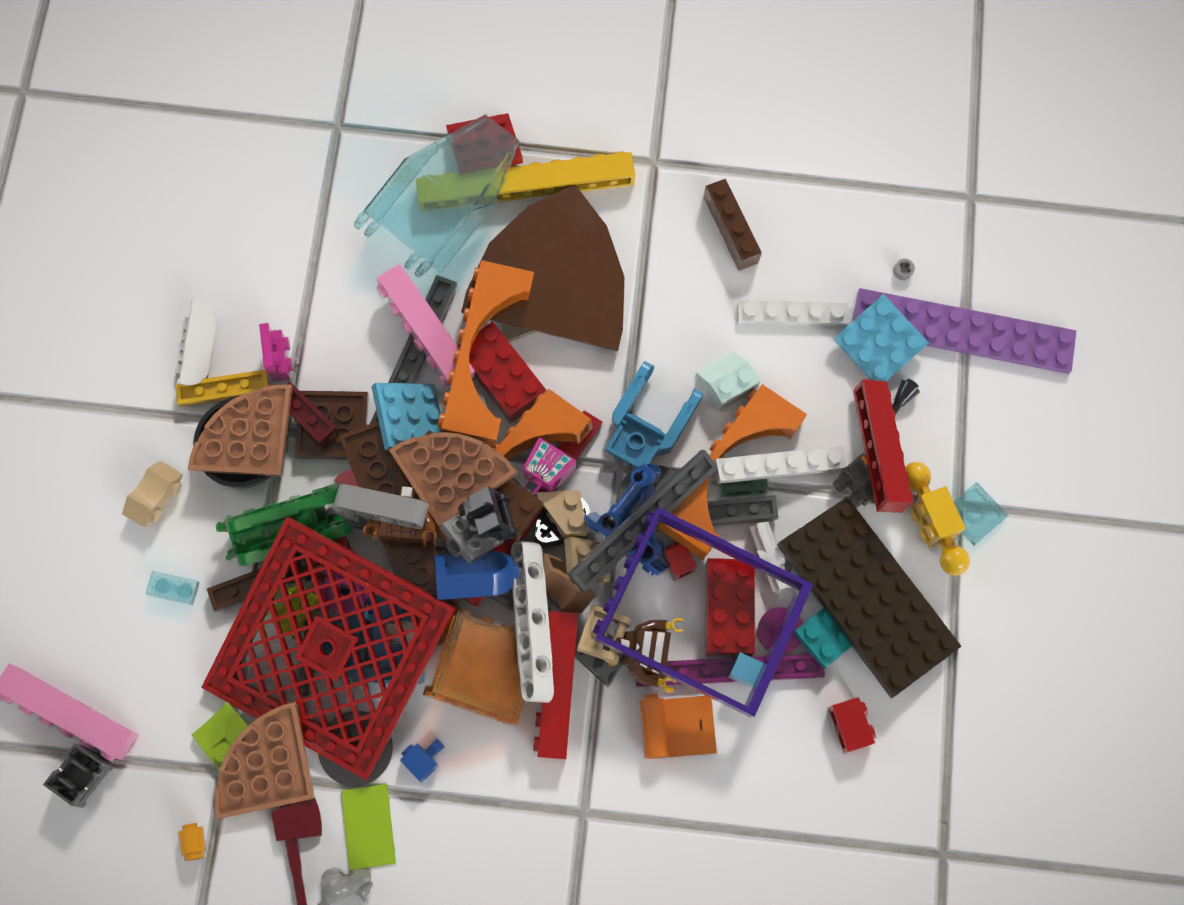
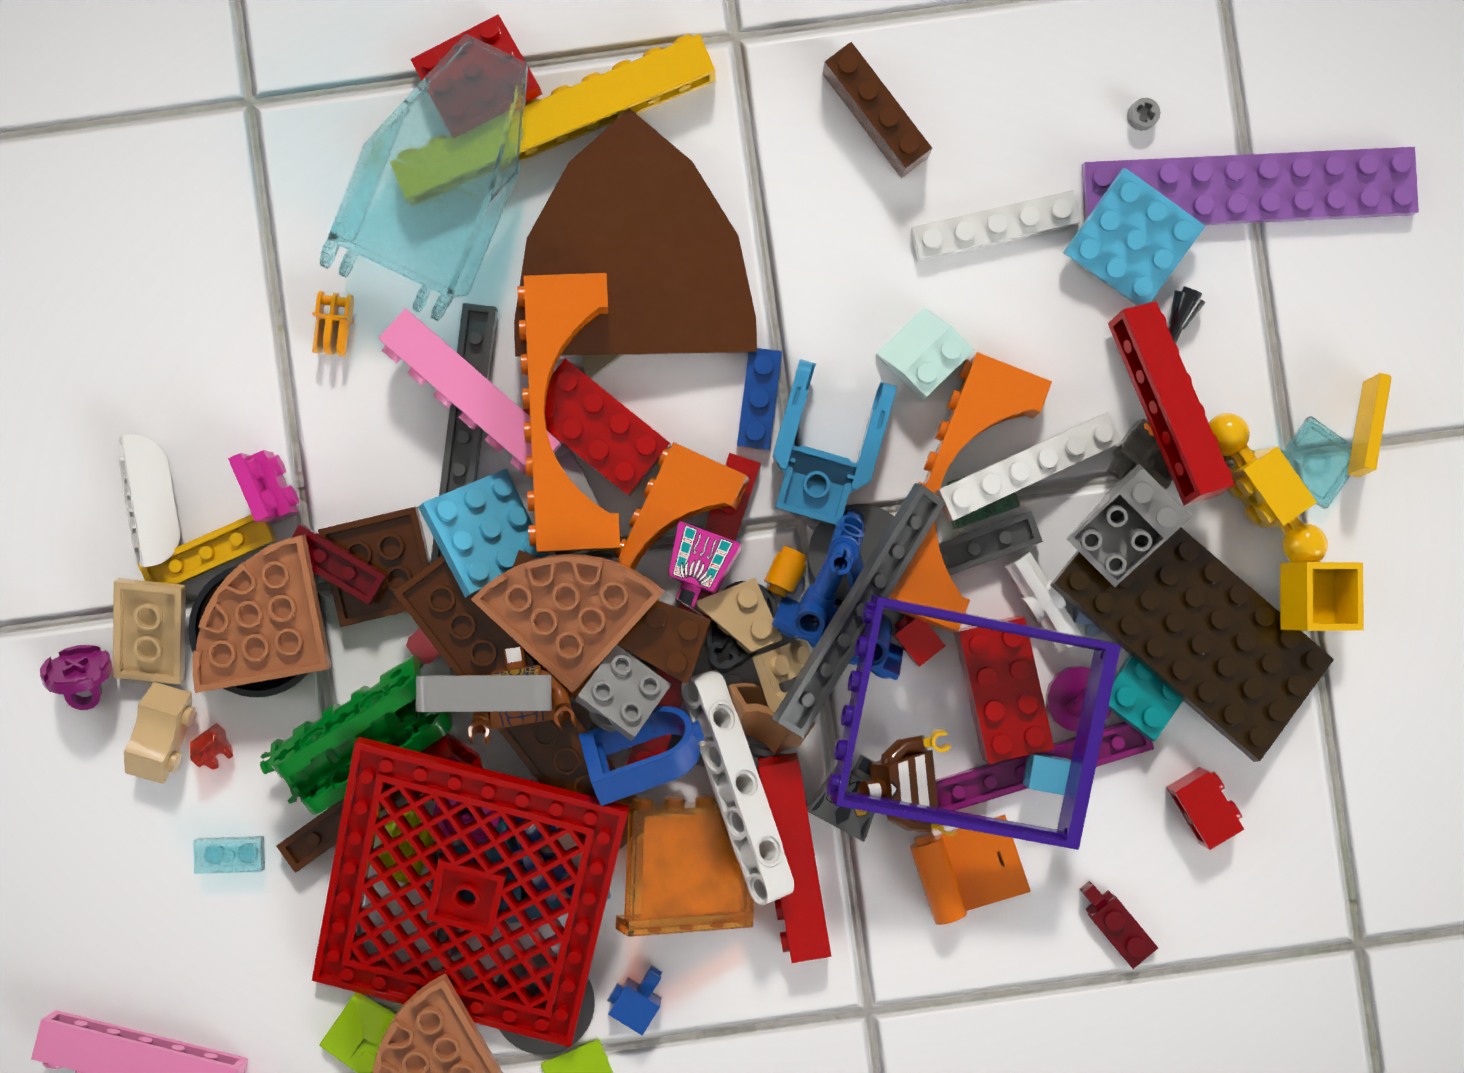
camera: 10 degrees left, 15 degrees up
(114, 440) = (77, 671): none -> magenta tile
(168, 426) = (149, 631): none -> tan plate
(182, 511) = (208, 745): none -> clear red tile
(347, 268) = (332, 329): none -> light orange arm
(485, 517) = (634, 671): black piece -> none
(593, 648) = (824, 764): tan plate -> none
(601, 494) = (786, 571): none -> light orange brick
(612, 382) = (759, 399): none -> blue plate
(773, 795) = (1118, 925): none -> dark red hinge
(837, 515) = (1128, 525): none -> light grey slope
(959, 597) = (1321, 596): none -> yellow piece
(1013, 495) = (1369, 425): none -> yellow tile

